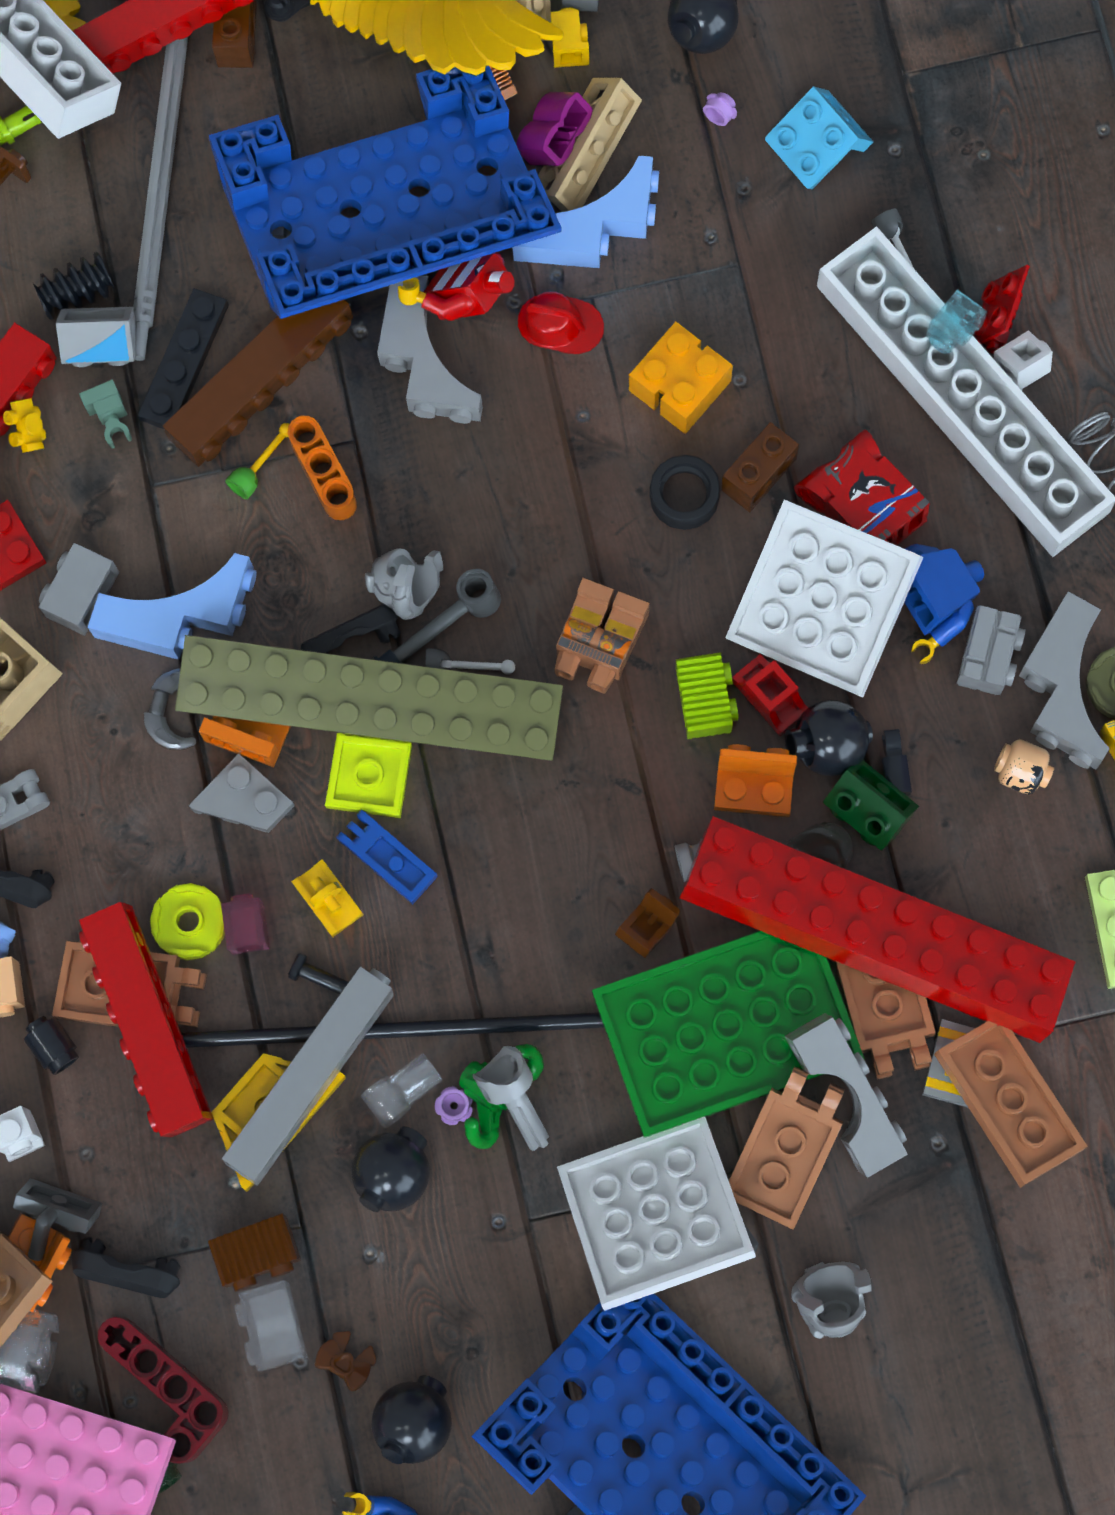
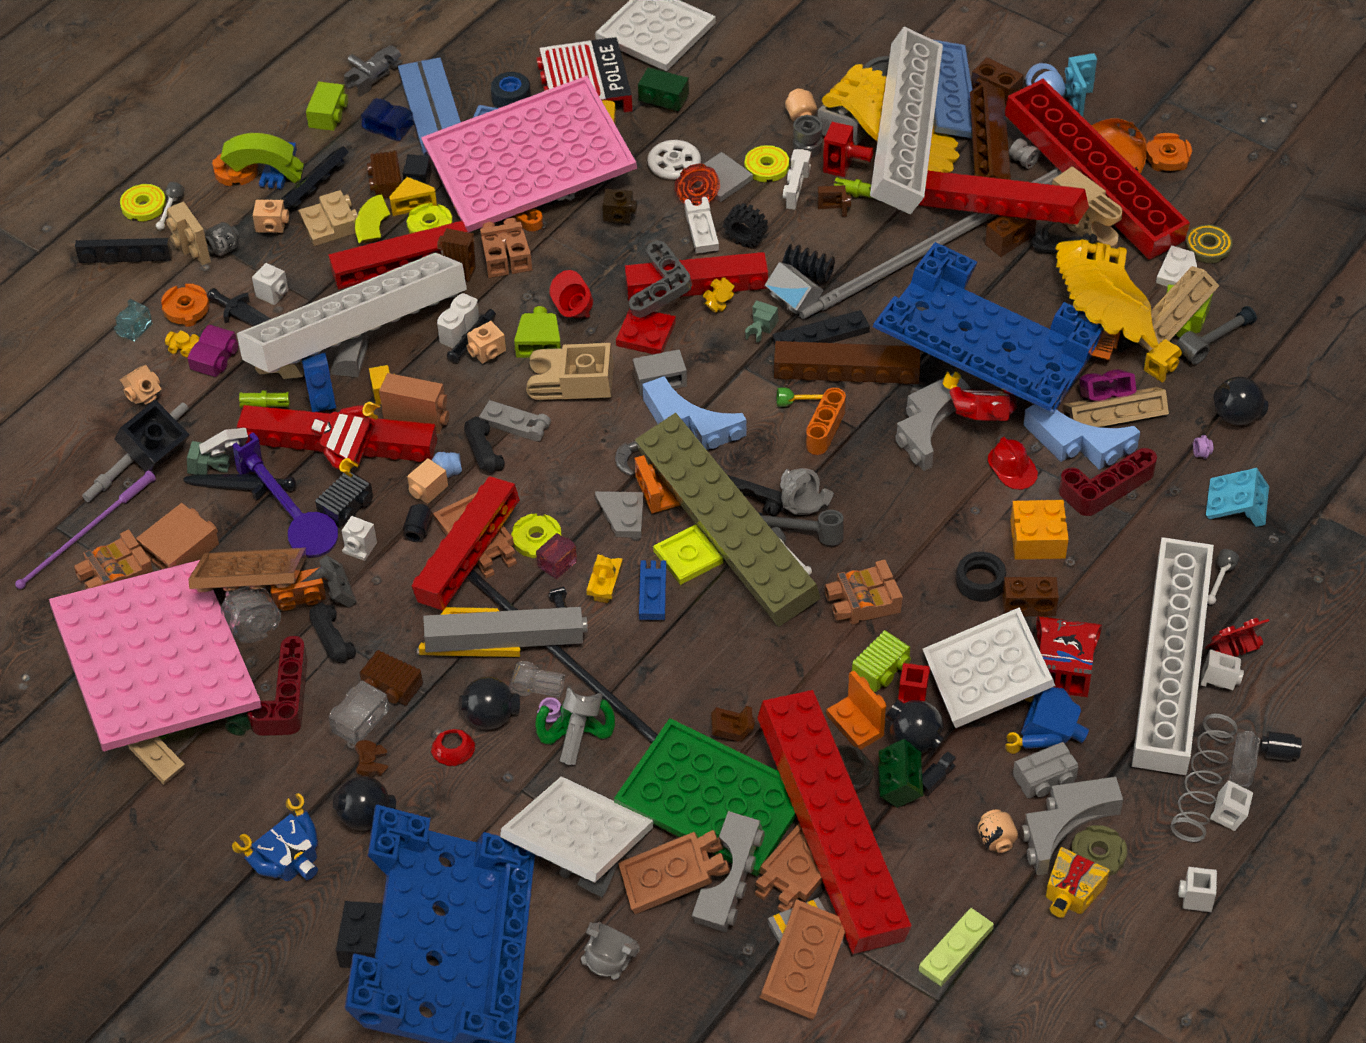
camera: 45 degrees right, 25 degrees down
(422, 1265) = (454, 756): none -> red piece
(683, 240) = (1095, 494): none -> dark red beam
(955, 323) = (1198, 609): clear light blue brick -> none

